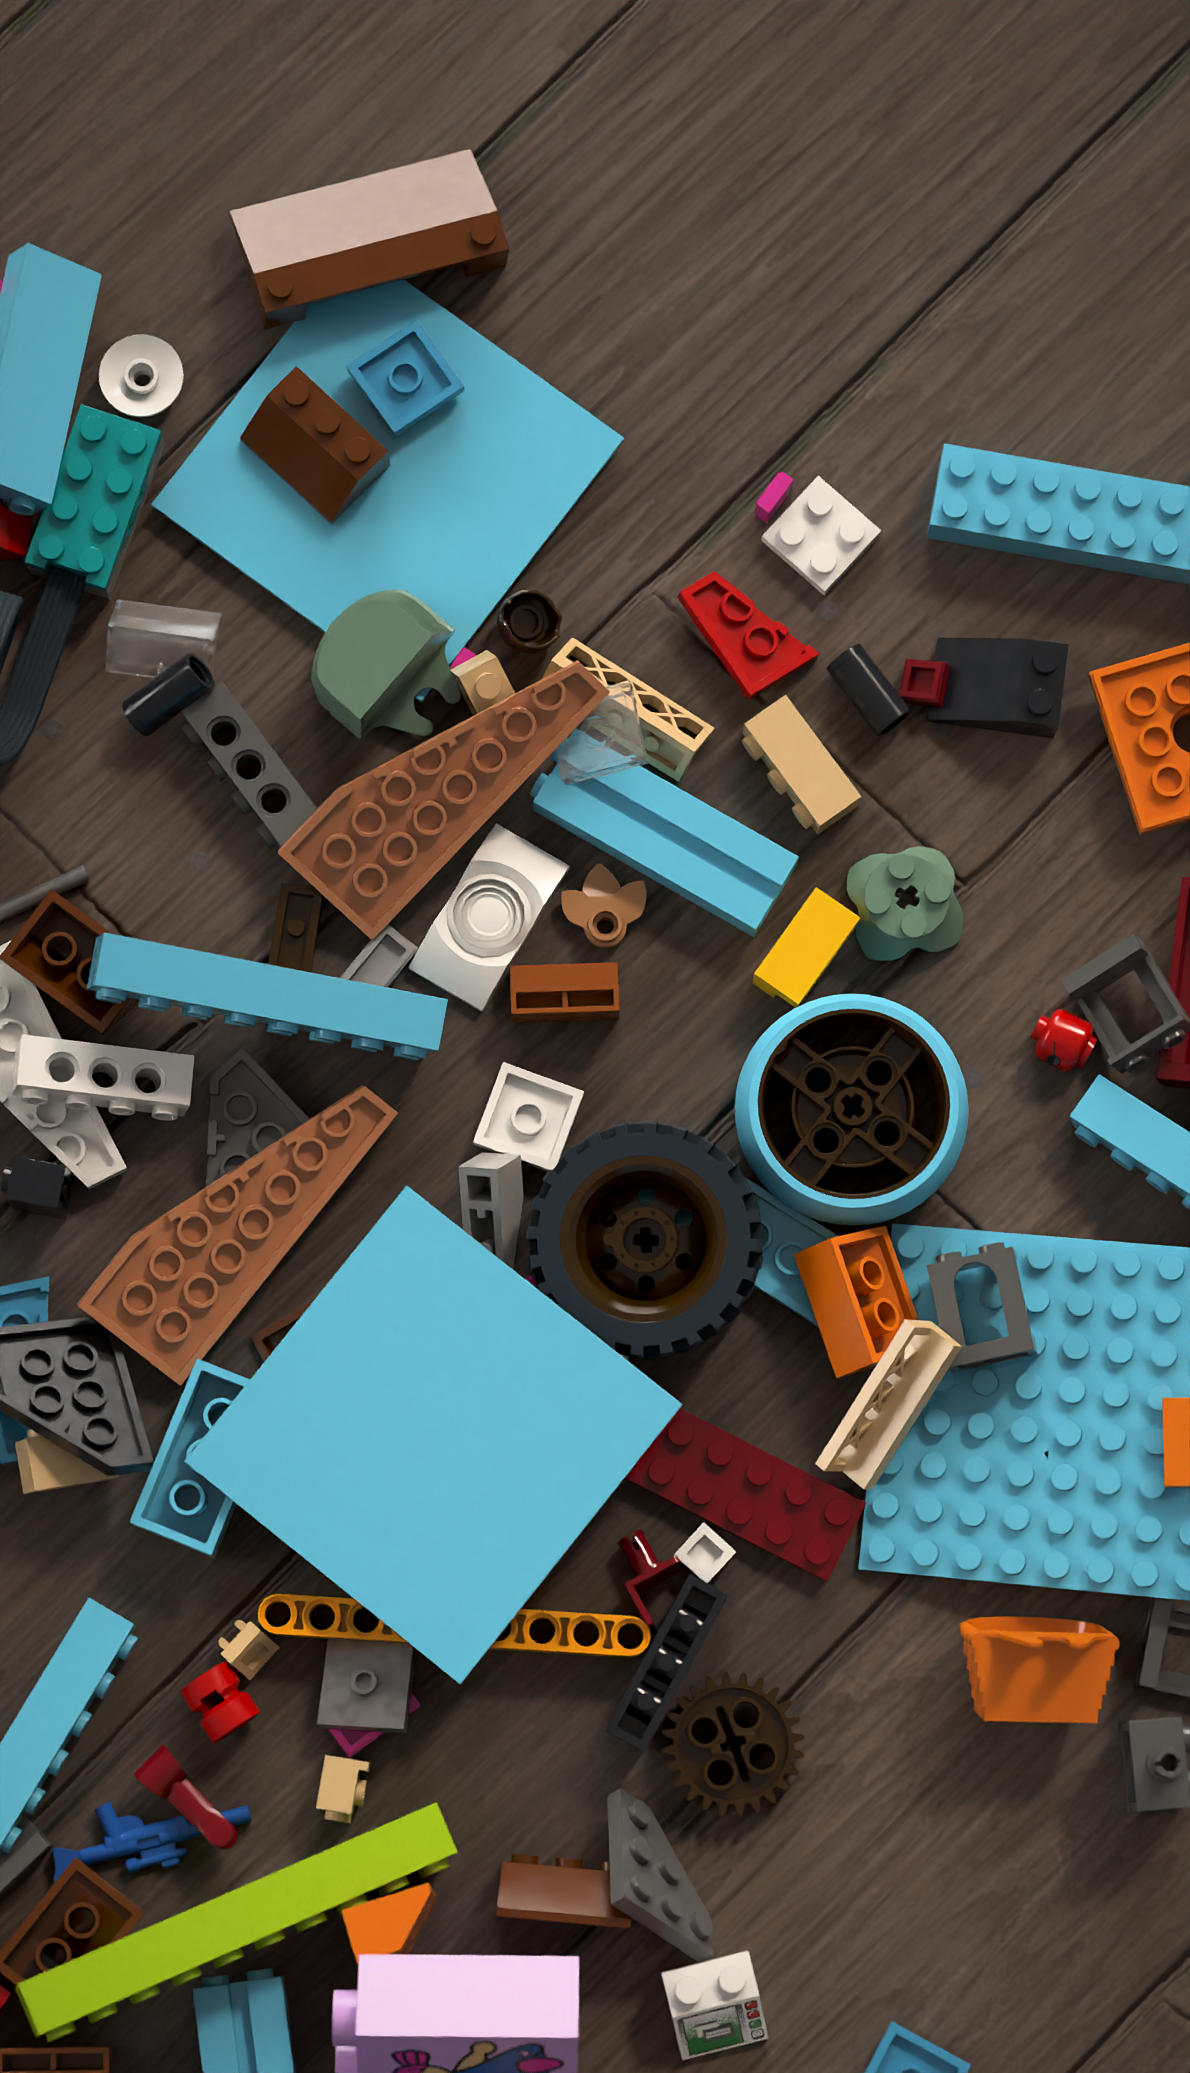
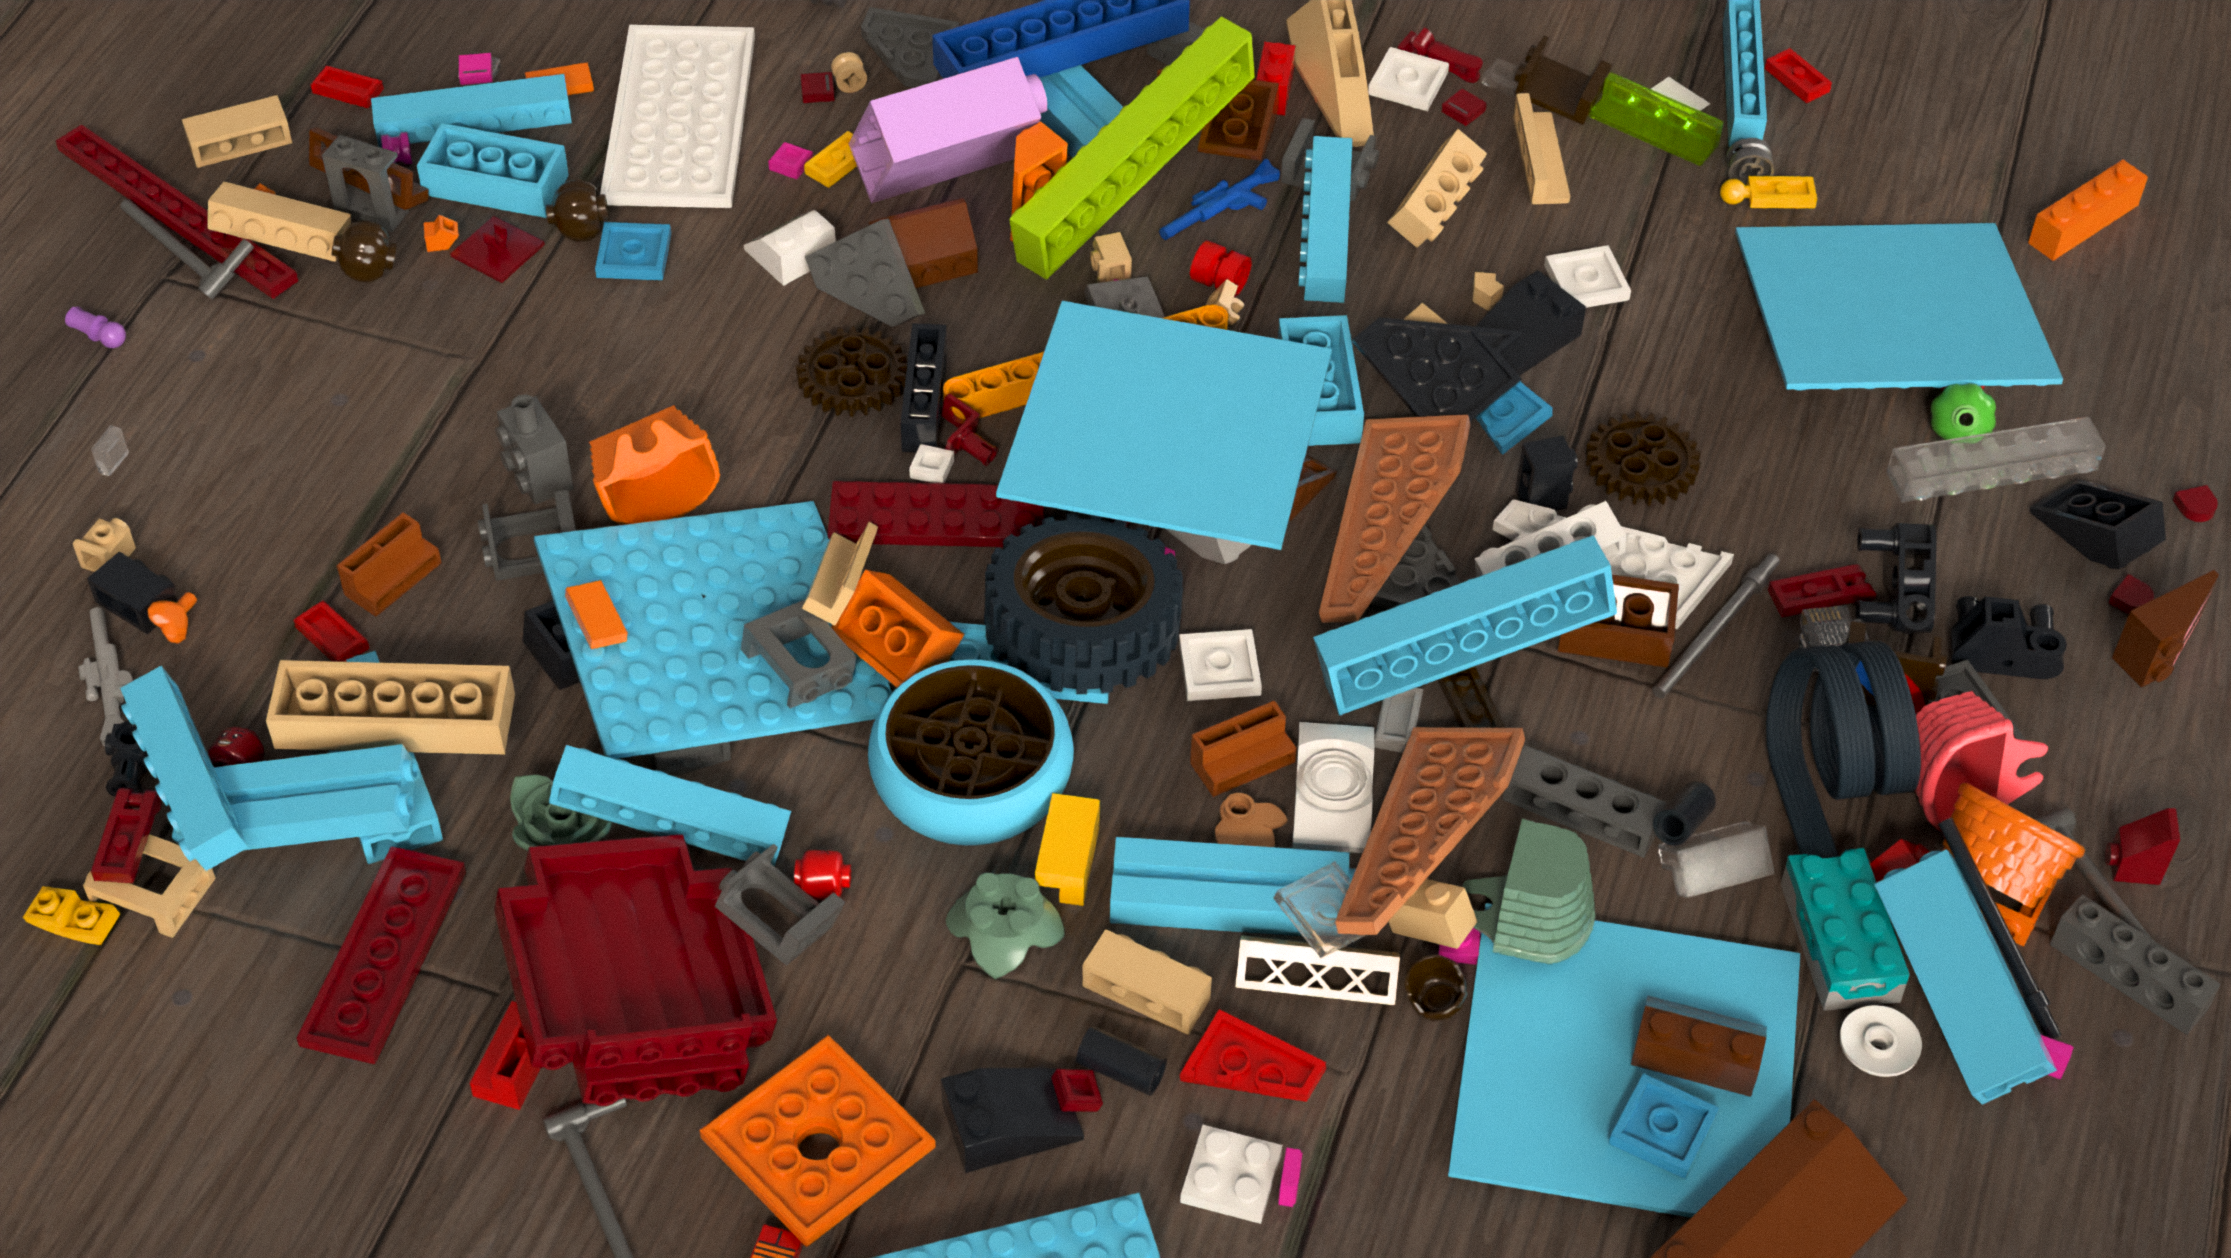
camera: 155 degrees right, 30 degrees down
(167, 1778) = (1185, 208): dark red piece -> none
(493, 1202) = (1212, 593): light grey slope -> none

